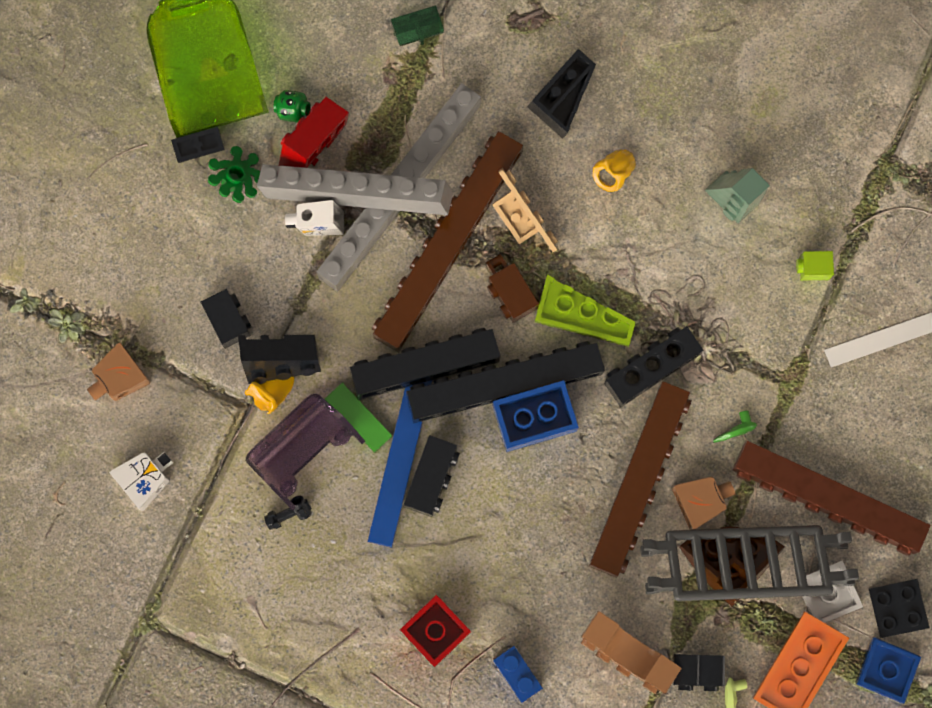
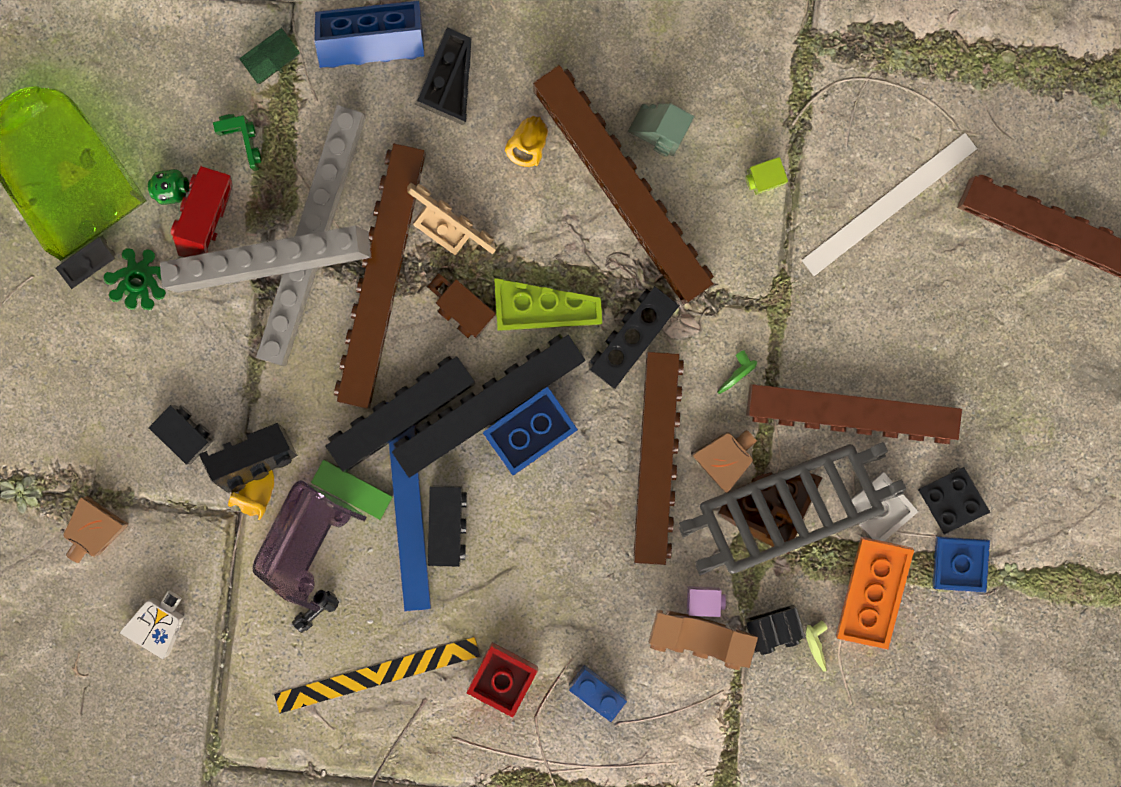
camera: 20 degrees left, 10 degrees up
(317, 218) = (237, 299): white torso -> none
(322, 592) = (377, 675): none -> sticker
(365, 73) = (230, 124): none -> green bracket
(508, 36) = (369, 34): none -> blue slope
(643, 623) = (705, 601): none -> lavender brick
(686, 231) = (622, 185): none -> reddish brown brick

